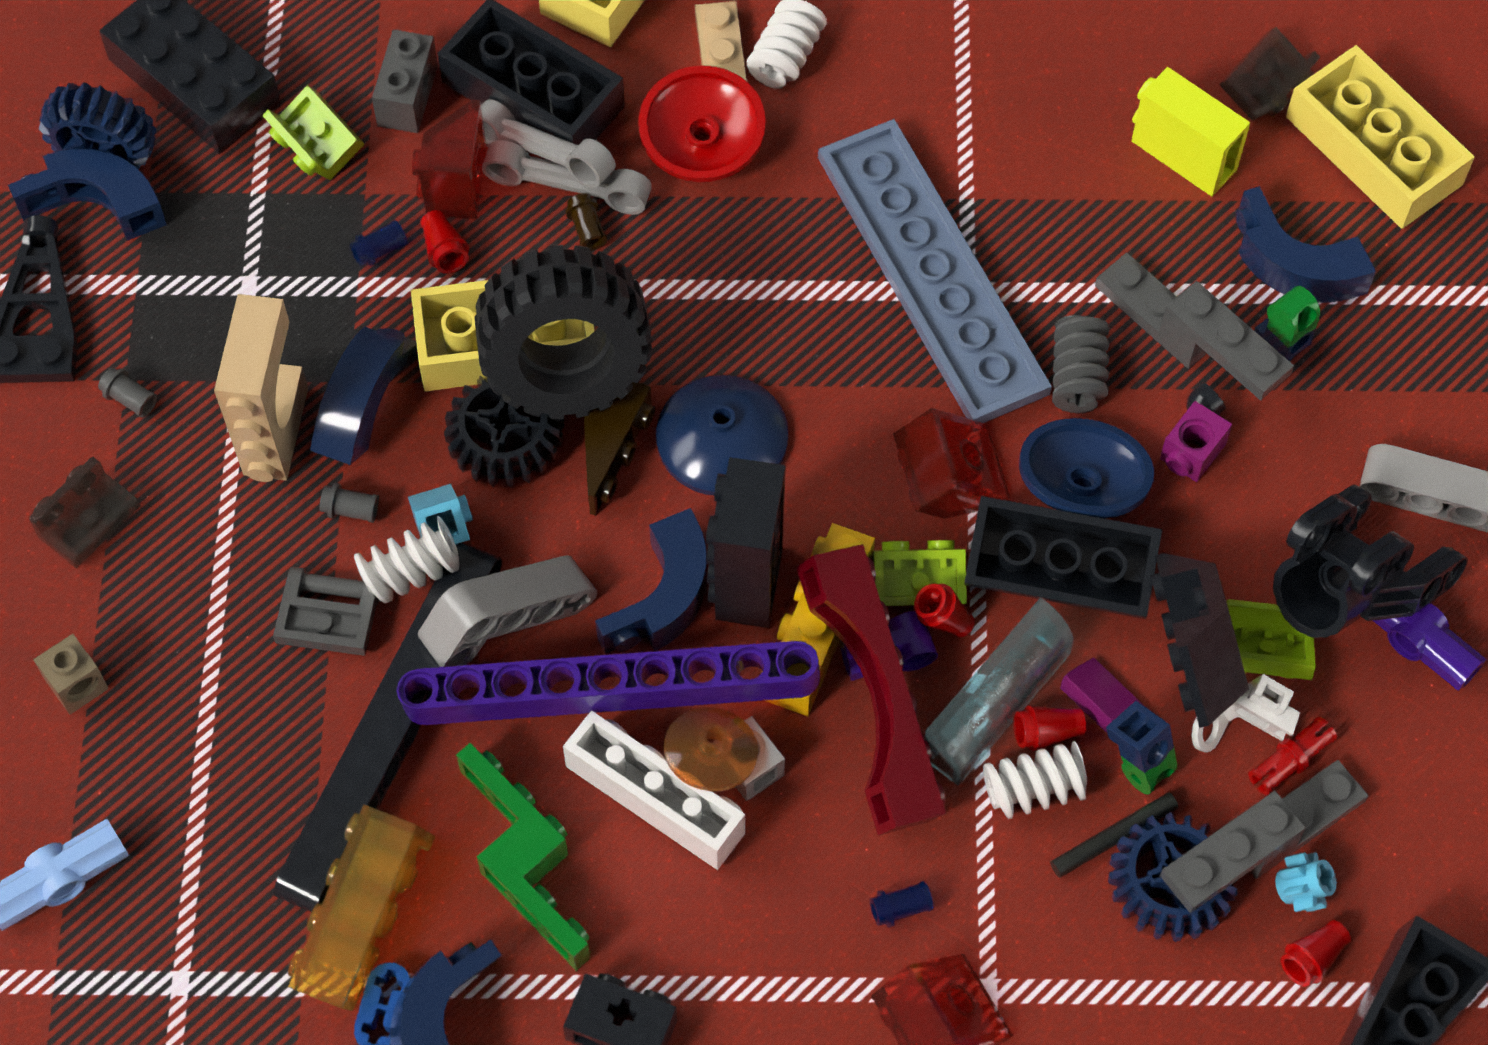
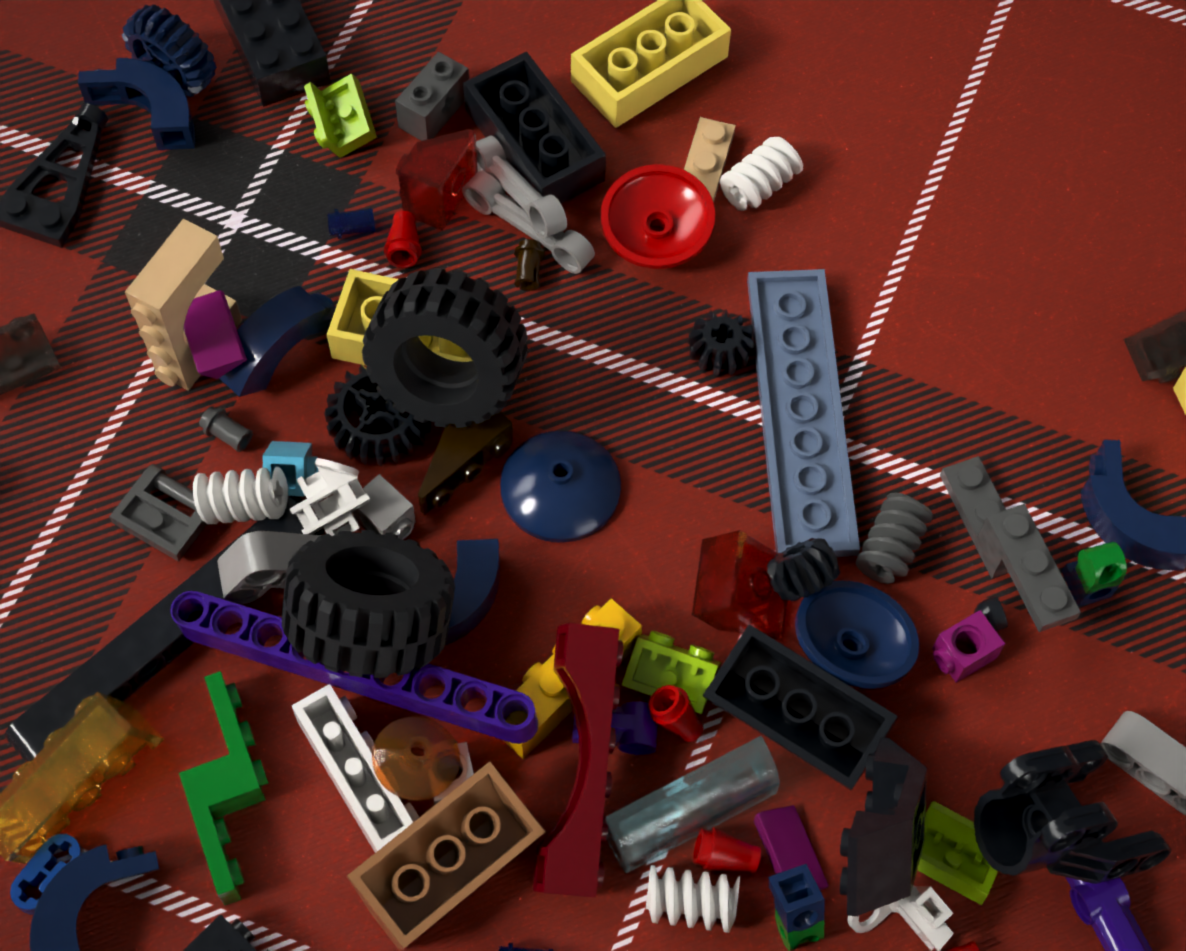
camera: 20 degrees right, 0 degrees up
(118, 386) = (91, 265): dark grey pin -> none
(305, 411) = (213, 335): none -> magenta slope
(510, 541) = (336, 509): none -> white piece
(556, 525) = (386, 511): none -> light grey brick
(604, 611) = (367, 603): none -> black tyre
(746, 541) = (523, 587): black brick -> none
(783, 832) = (444, 855): none -> medium nougat slope
(822, 231) = (721, 343): none -> black gear
(1007, 424) = (803, 569): none -> black gear
(1189, 130) = (1077, 369): neon yellow brick -> none

